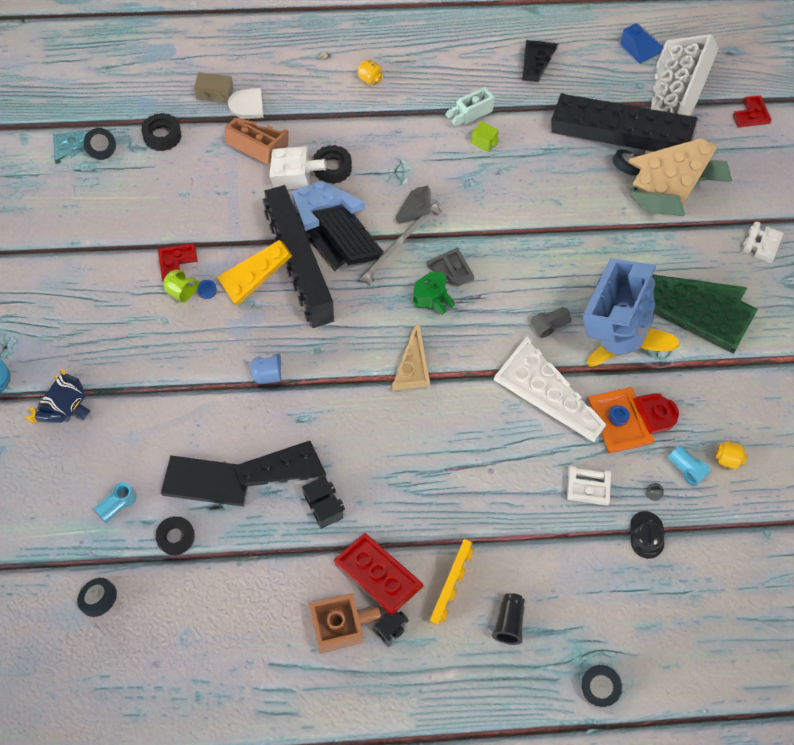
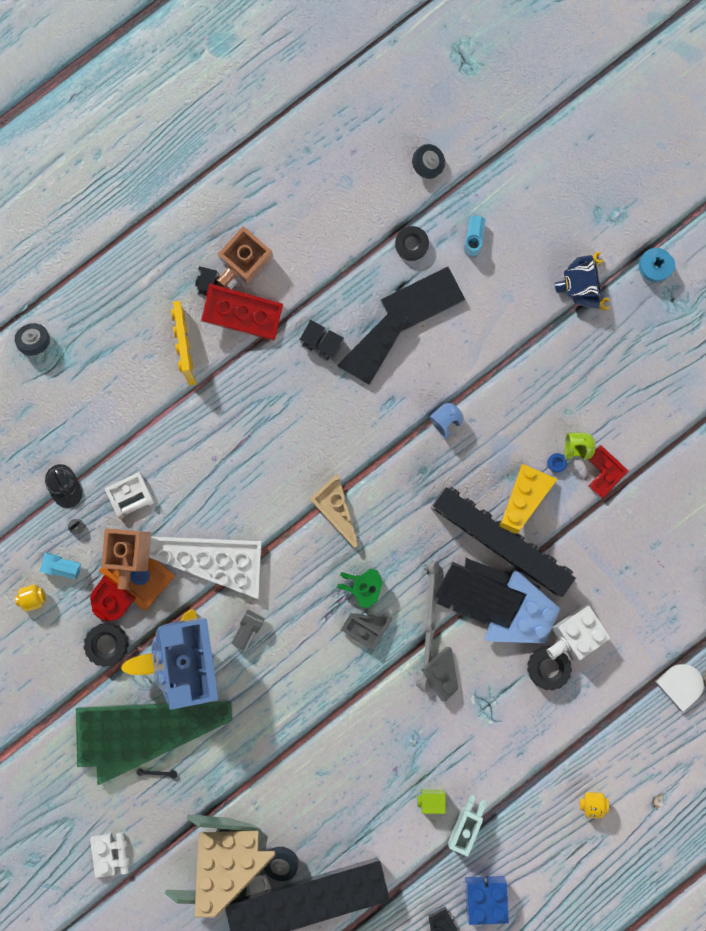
camera: 150 degrees right, 25 degrees up
(255, 139) = (635, 643): nougat wedge -> none
(495, 63) = (486, 903): none -> blue piece
(510, 620) = (124, 344): black plant -> none
(621, 430) = (126, 552): none -> nougat brick
(678, 265) = (172, 774): none -> black hinge
(688, 369) = (95, 655): none -> black tyre

